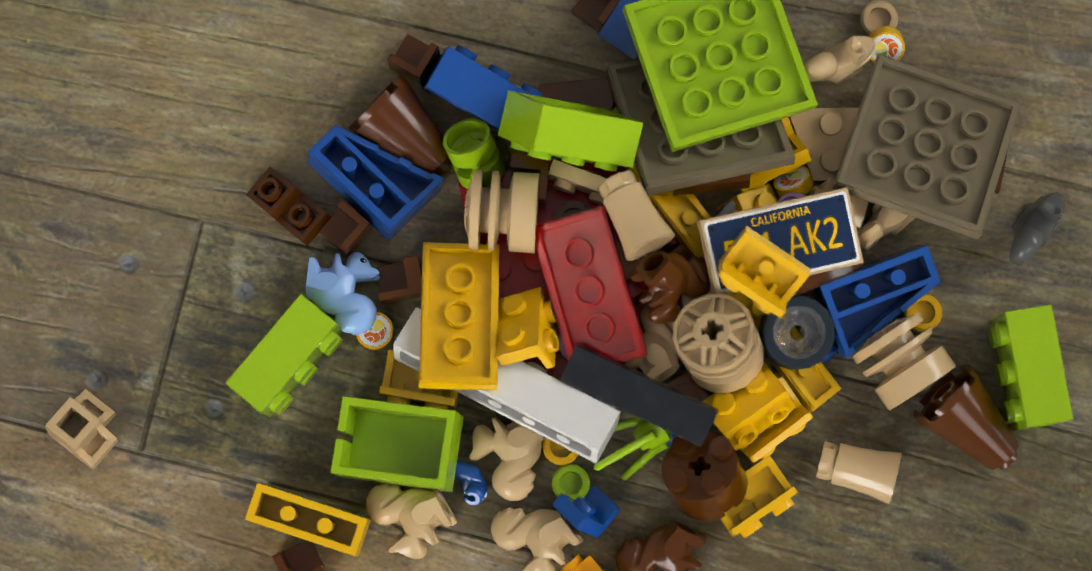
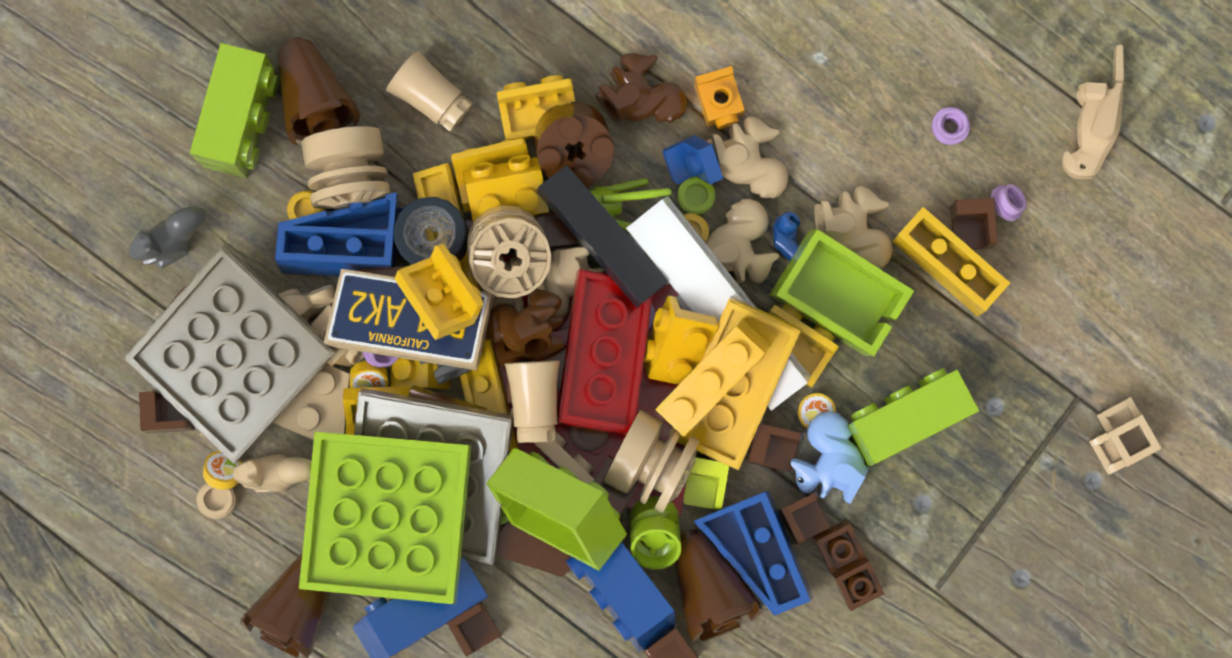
camera: 160 degrees left, 0 degrees up
(446, 221) = (706, 484): none -> neon yellow panel
(480, 306) = (713, 377): none -> yellow brick
(965, 67) = (160, 415): none -> reddish brown panel

